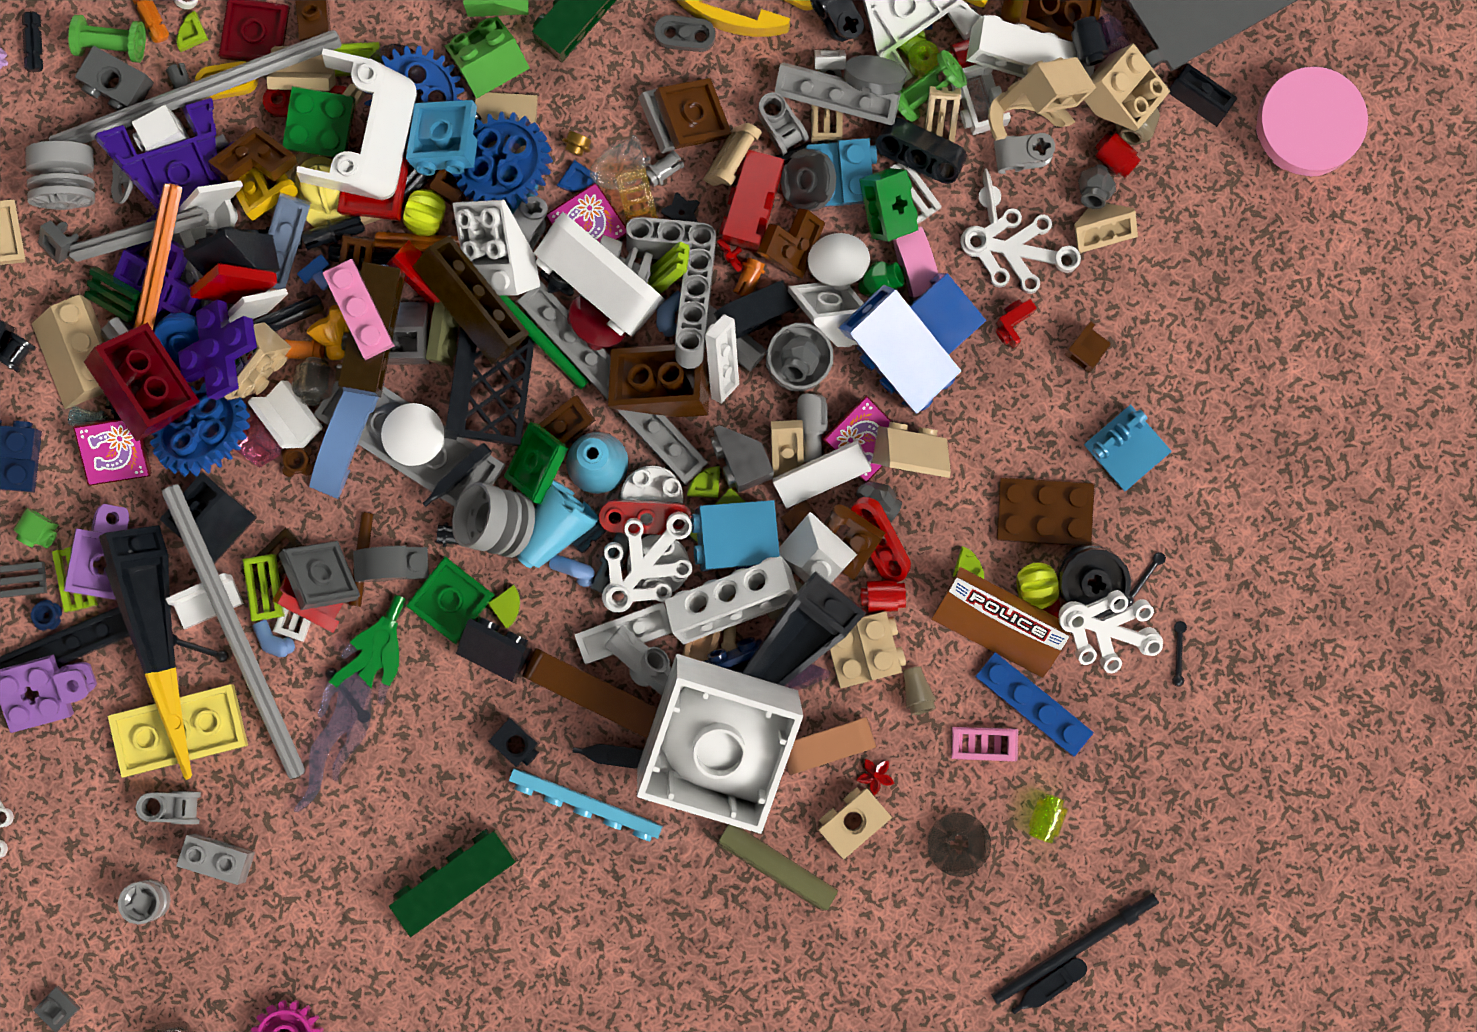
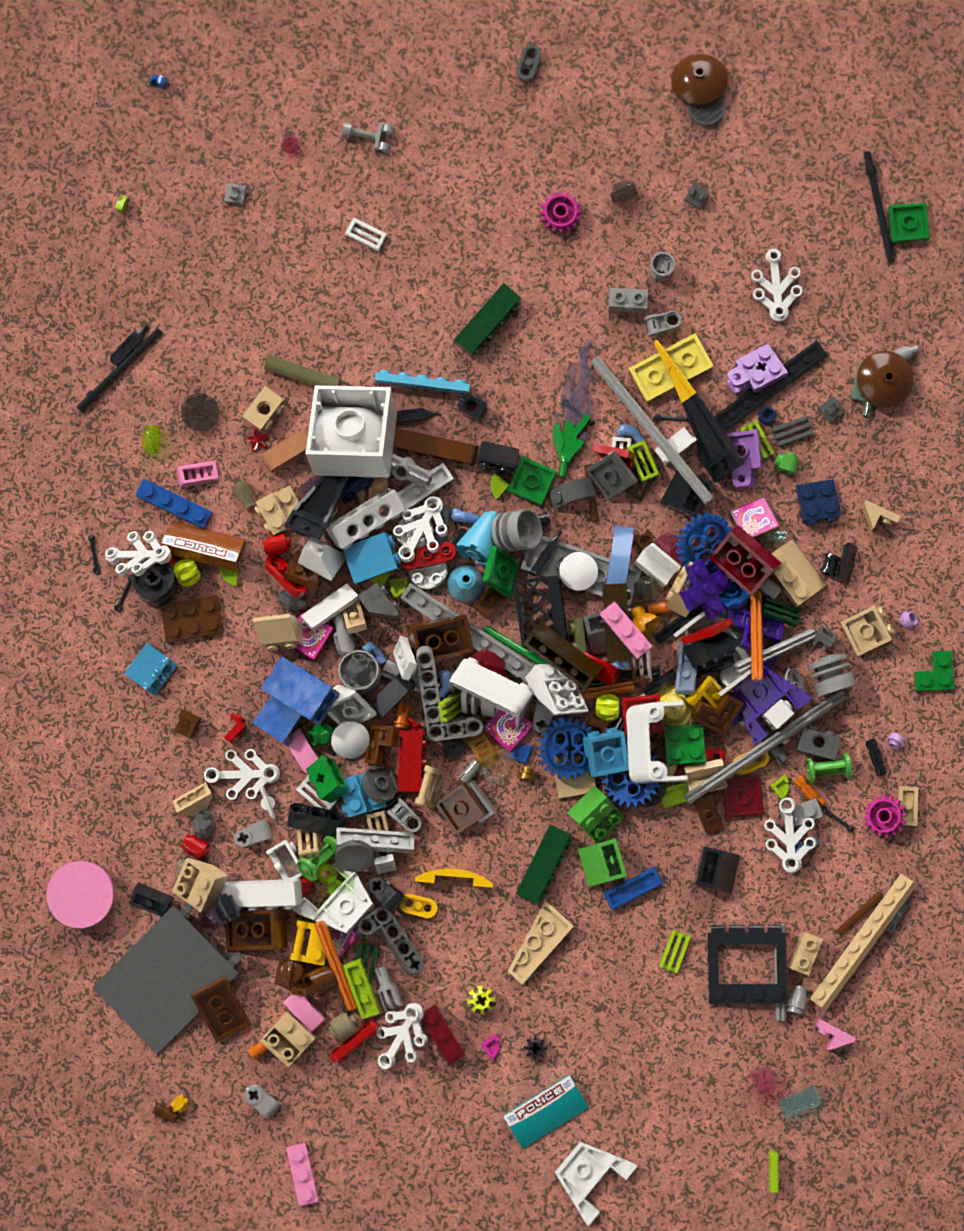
camera: 165 degrees right, 0 degrees up
(315, 270) = (663, 656): blue tile -> none
(685, 30) = (478, 859): dark grey plate -> none
(765, 387) = (376, 652): none -> medium blue arm
(1046, 90) = (249, 865): tan piece -> none

